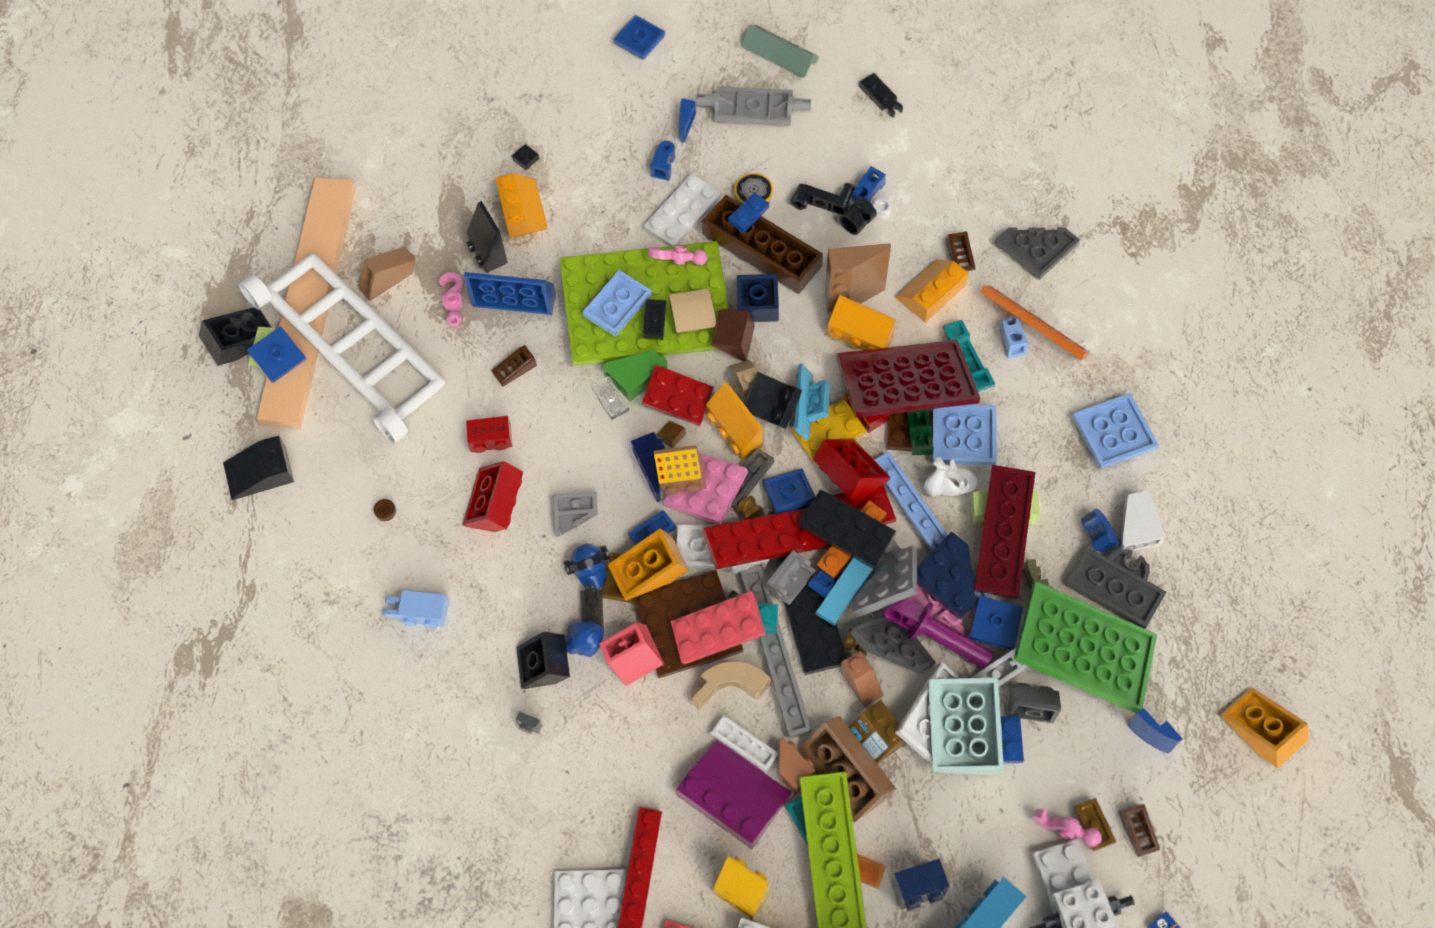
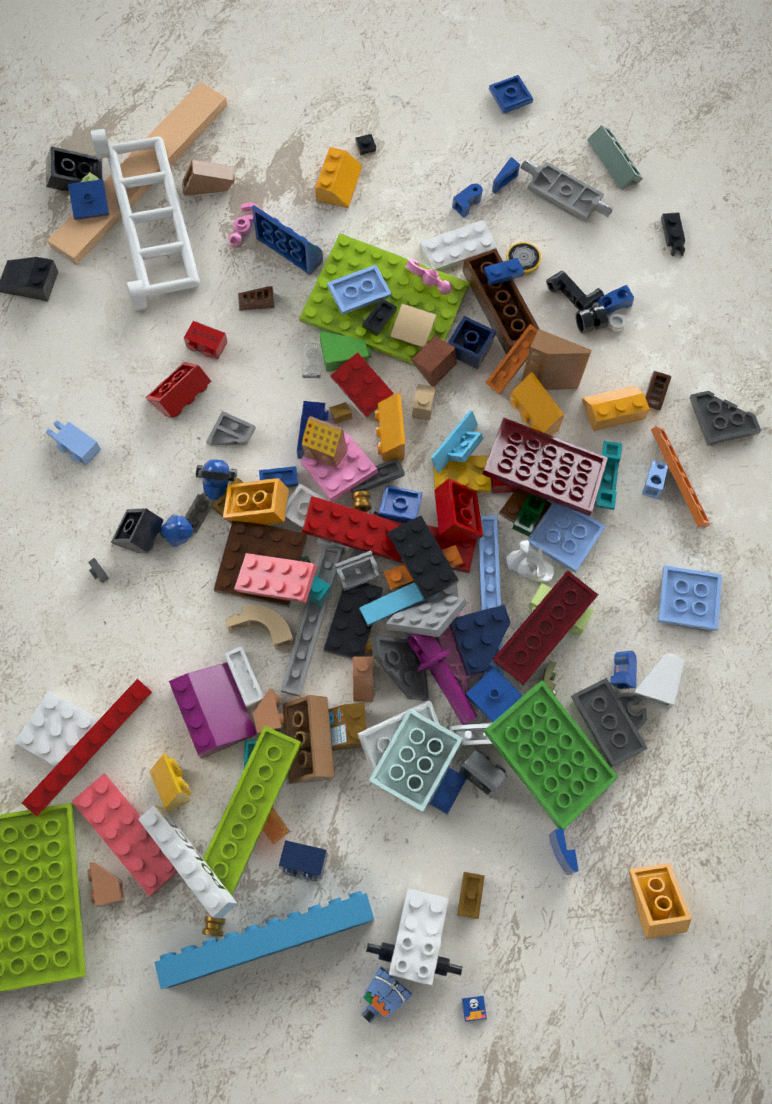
camera: 25 degrees right, 5 degrees up
(385, 510) = (97, 356): reddish brown tile -> none
(485, 240) = (292, 192): black slope -> none
(632, 653) = (203, 560): coral slope -> none
(772, 400) = (429, 426): black bracket -> none
(812, 292) = (512, 361): none -> orange plate
(822, 583) = (378, 588): blue tile -> none
(1068, 828) = (447, 886): bright pink piece -> none
(1132, 832) = (515, 905): reddish brown slope -> none

